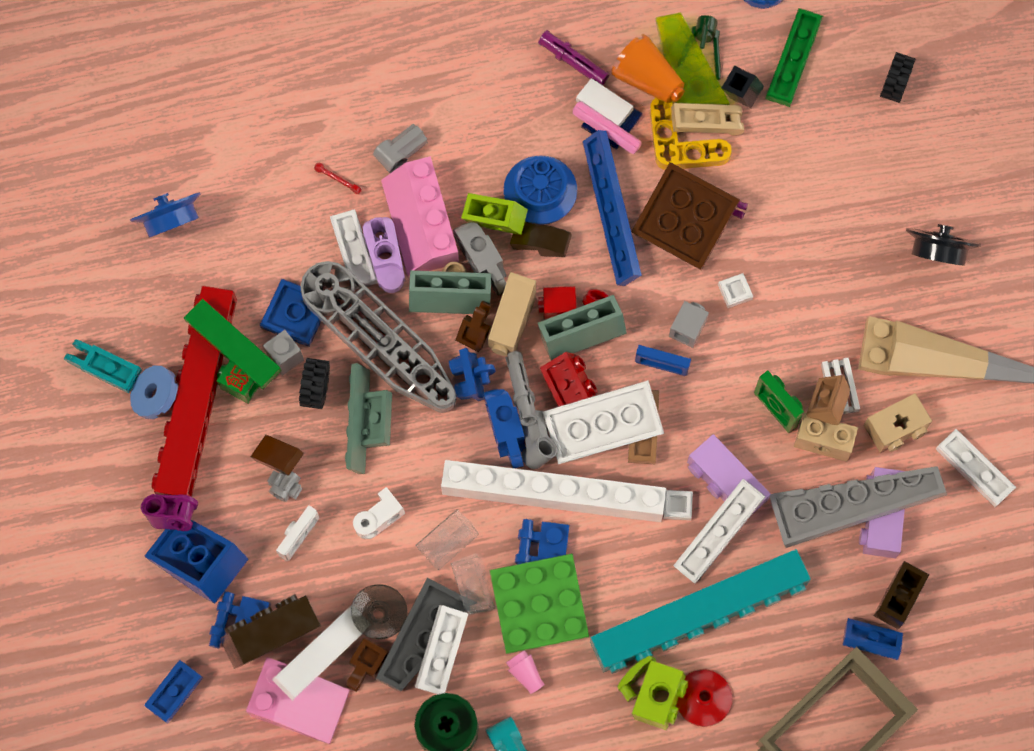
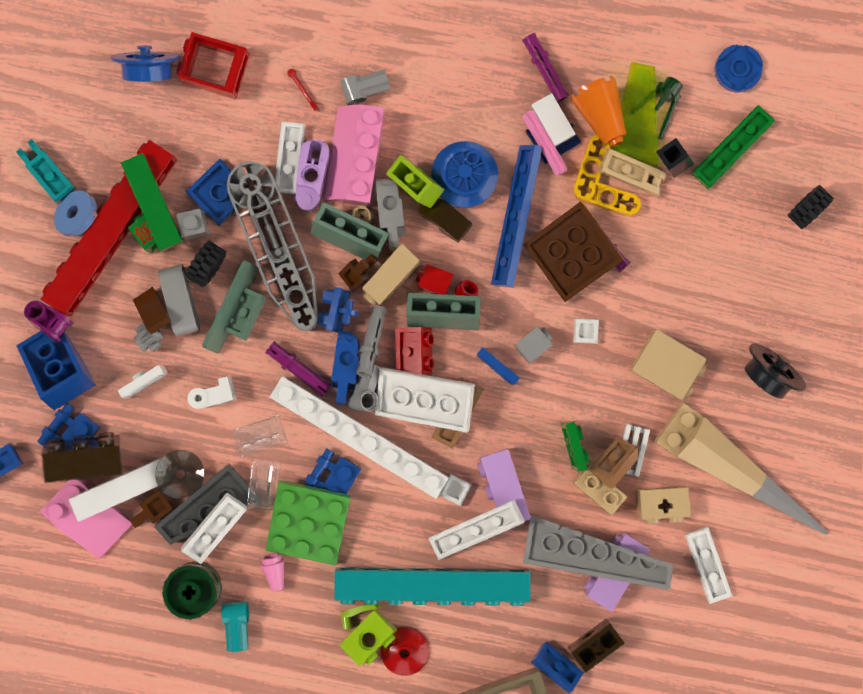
camera: 25 degrees right, 15 degrees up
(231, 170) = (236, 72): none -> red window
(300, 434) = (179, 300): none -> light grey beam
(455, 451) = (297, 368): none -> magenta pin
(835, 284) = (668, 365): none -> tan panel

